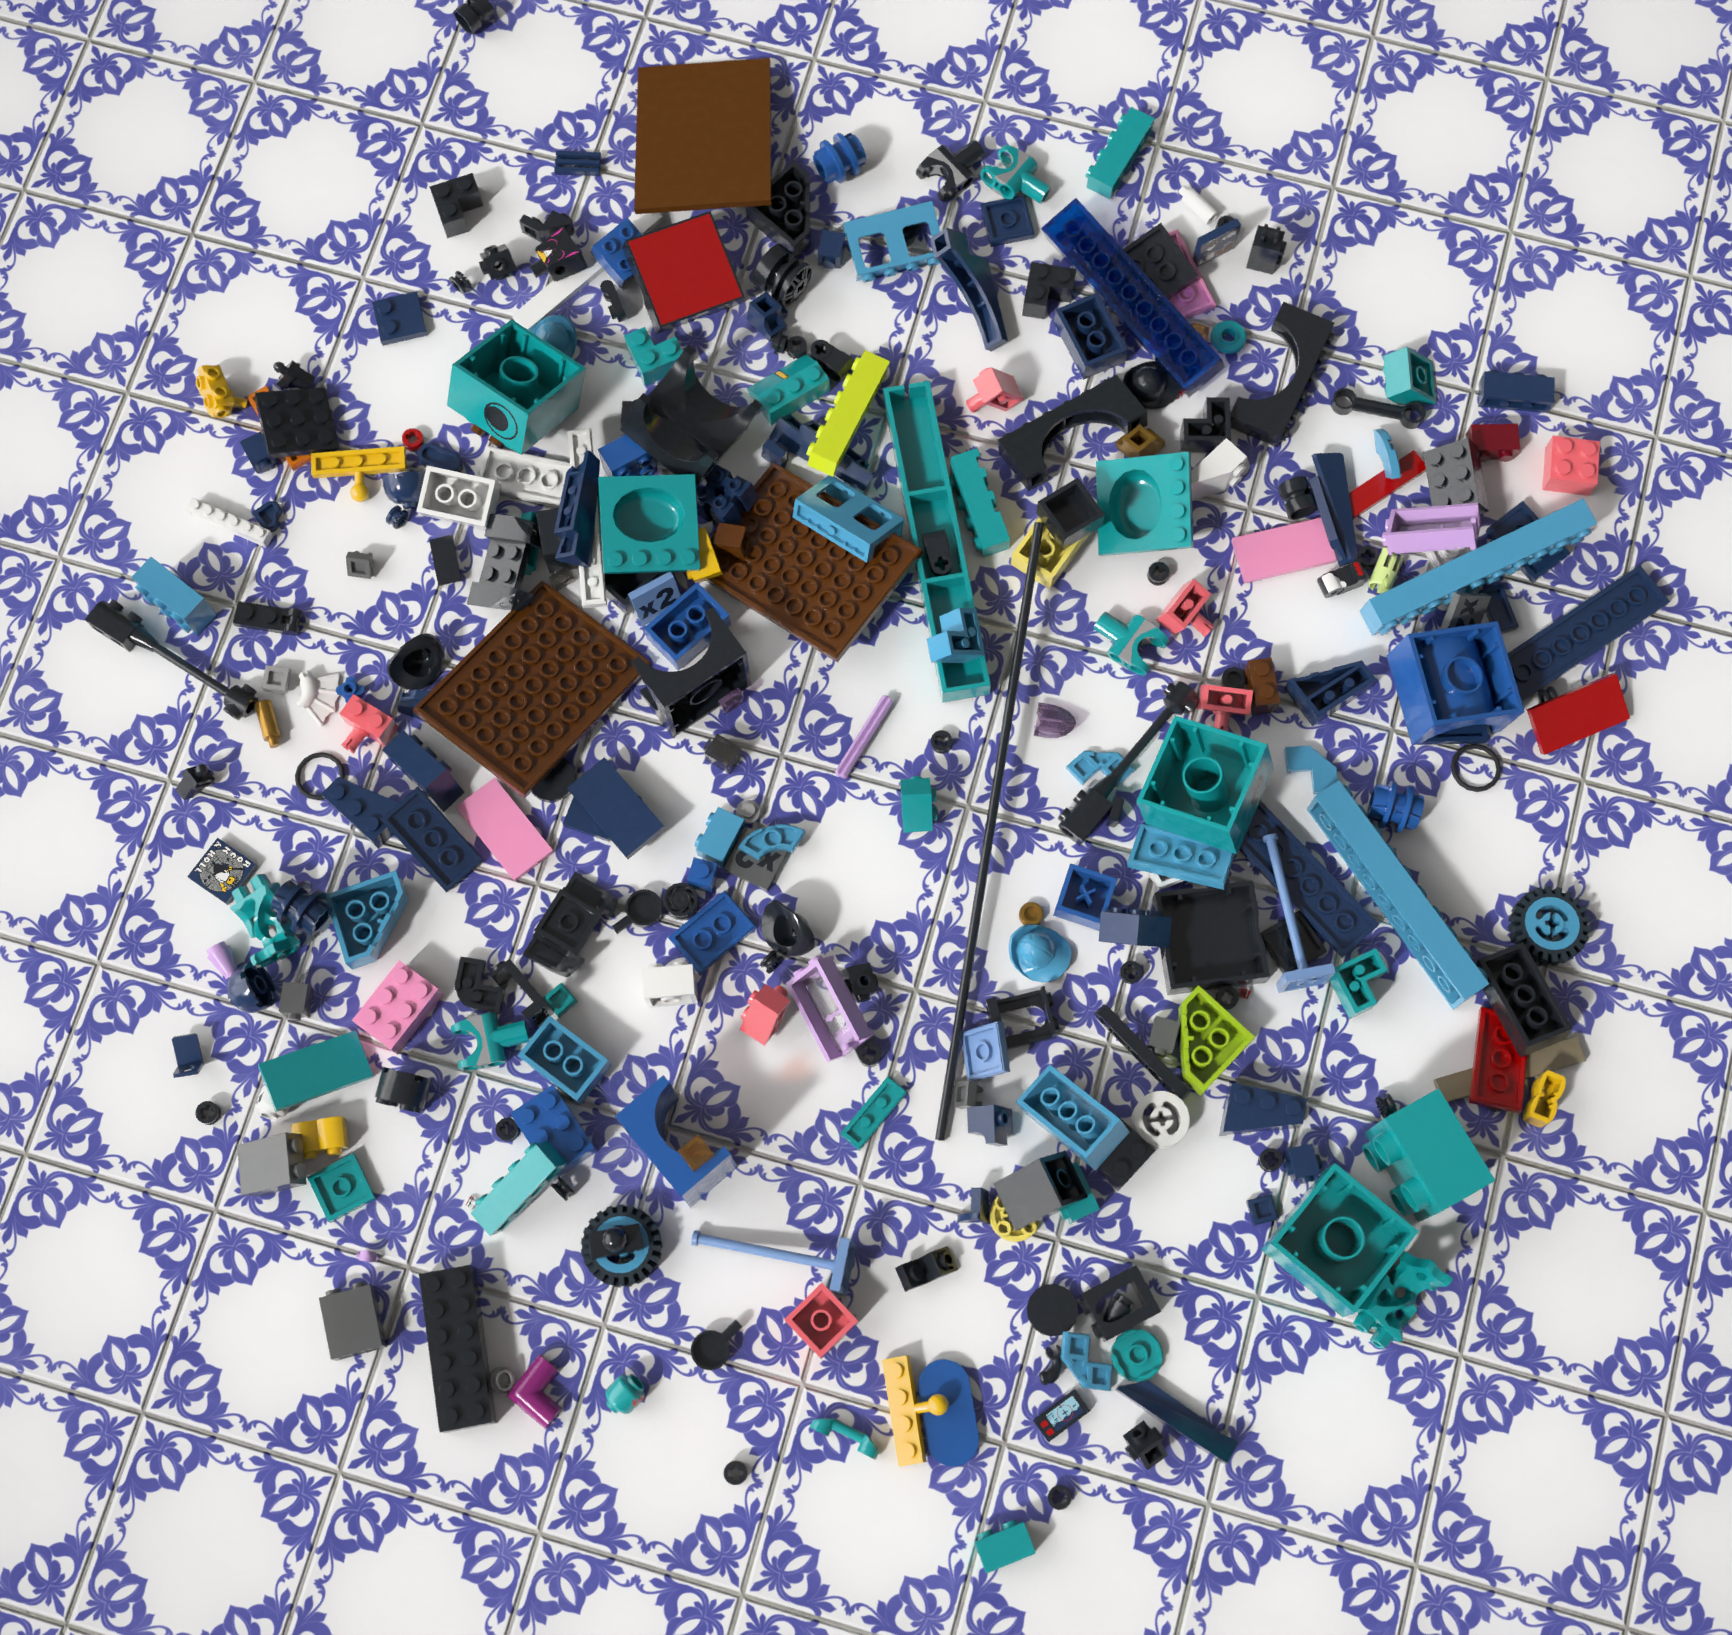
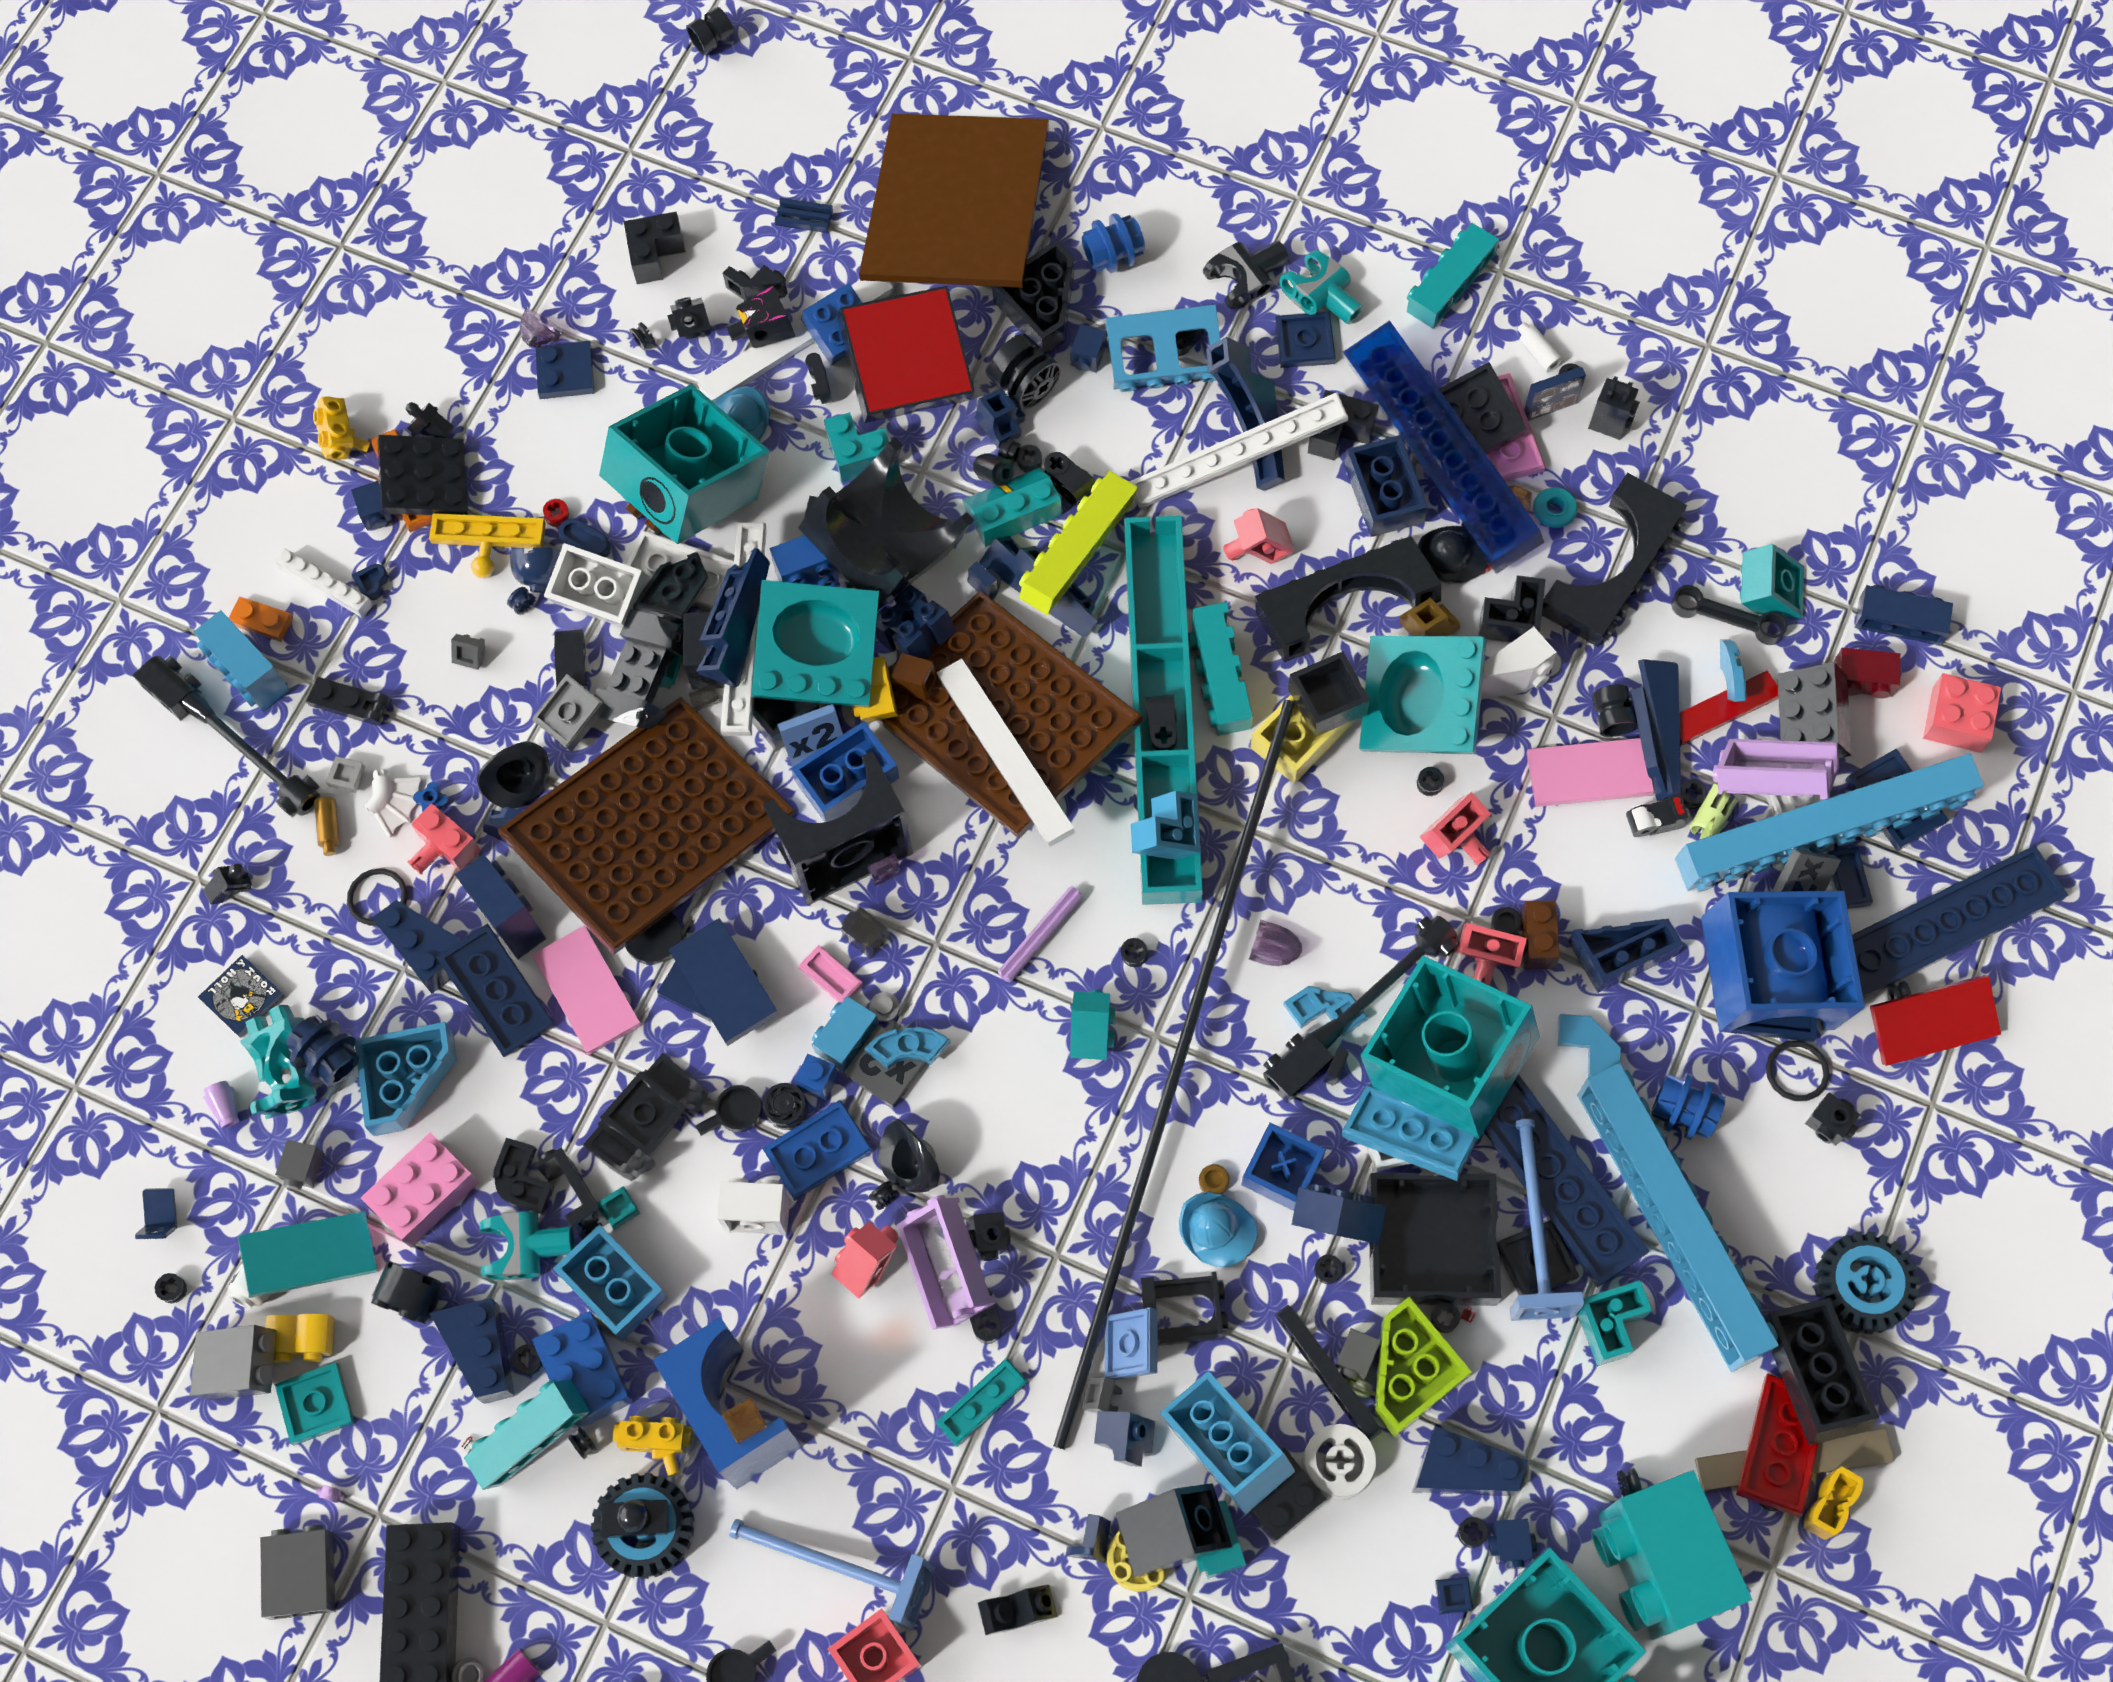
camera: 10 degrees right, 5 degrees down
(182, 559) = (260, 619): none -> orange piece
(251, 988) = (248, 1143): dark blue cylinder -> none
(371, 287) = (537, 329): none -> clear purple brick
(453, 605) = (569, 712): none -> tile
(467, 1125) = (479, 1347): none -> dark blue wedge
(522, 492) = (674, 589): none -> black tile
(625, 1176) = (660, 1439): none -> yellow brick
(700, 791) = (830, 974): none -> bright pink tile
(769, 360) = (993, 469): none -> black brick
(816, 593) = (1006, 753): none -> white tile
(839, 522) = (1046, 671): dark azure window -> none
(968, 320) = (1239, 450): none -> white tile
(1128, 640) = (1383, 856): teal connector -> none
(1509, 802) = (1833, 1120): none -> black brick

